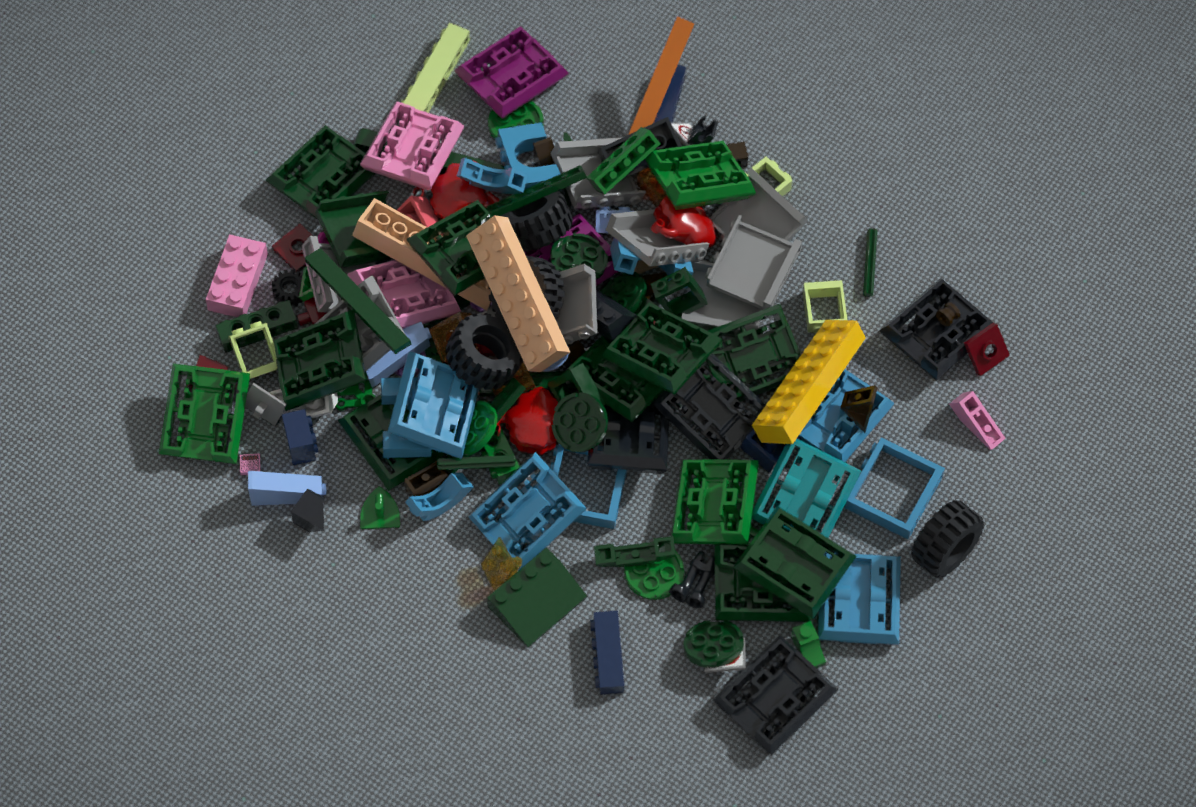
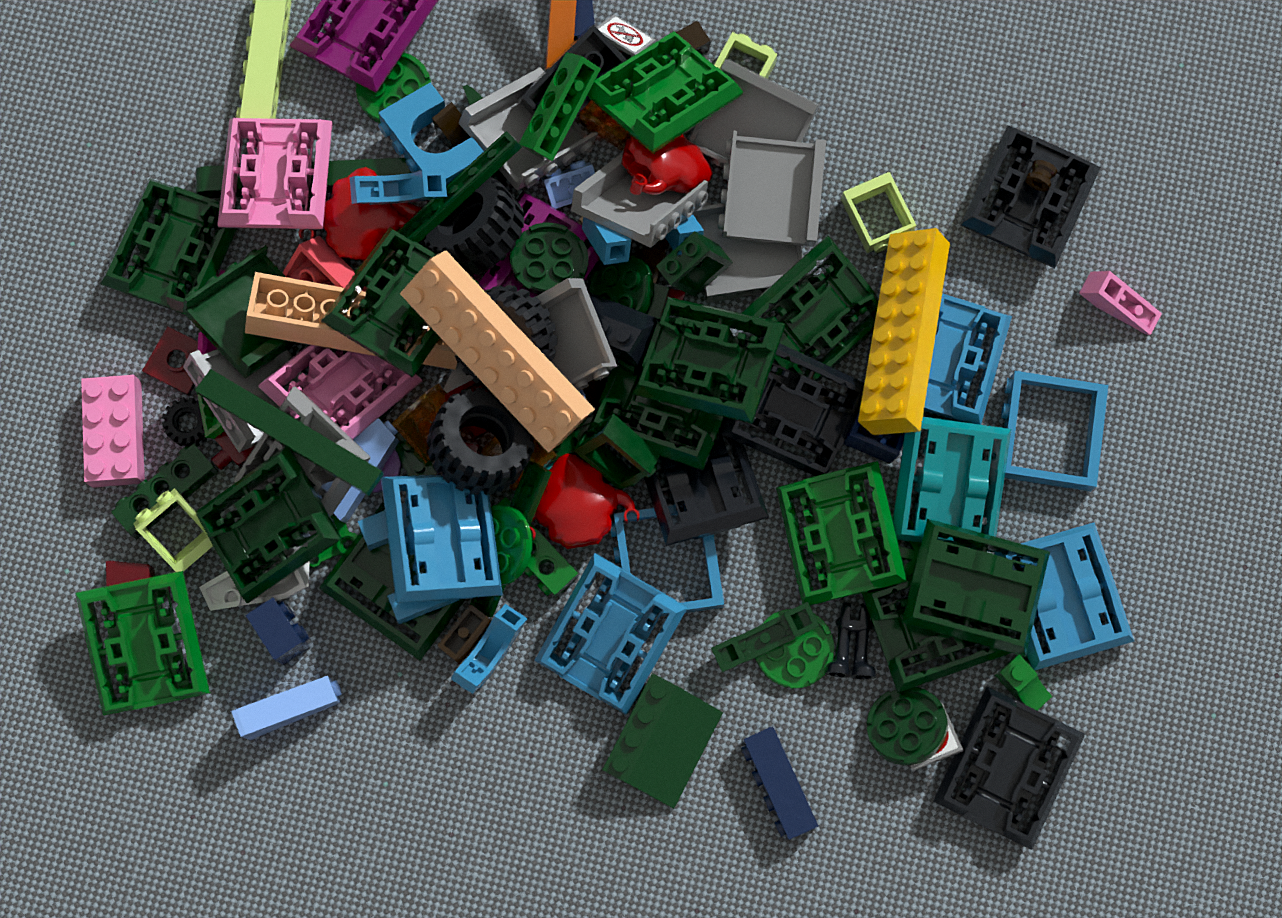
camera: 20 degrees left, 15 degrees up
(249, 462) = (227, 685): tile -> none
(264, 404) = (216, 604): light grey piece -> none
(309, 512) = (331, 730): black slope -> none
(379, 511) = (418, 689): green shield -> none
(476, 462) = (521, 590): dark green axle -> none
(499, 564) = (601, 718): clear yellow hinge -> none
(579, 422) = (638, 495): dark green tile -> none
(702, 134) = (641, 28): black hinge -> none
(859, 404) = (978, 341): dark brown slope -> none
(870, 260) = (911, 131): dark green axle -> none
(947, 538) = (1153, 486): black tyre -> none
(976, 349) = (1091, 208): dark red piece -> none

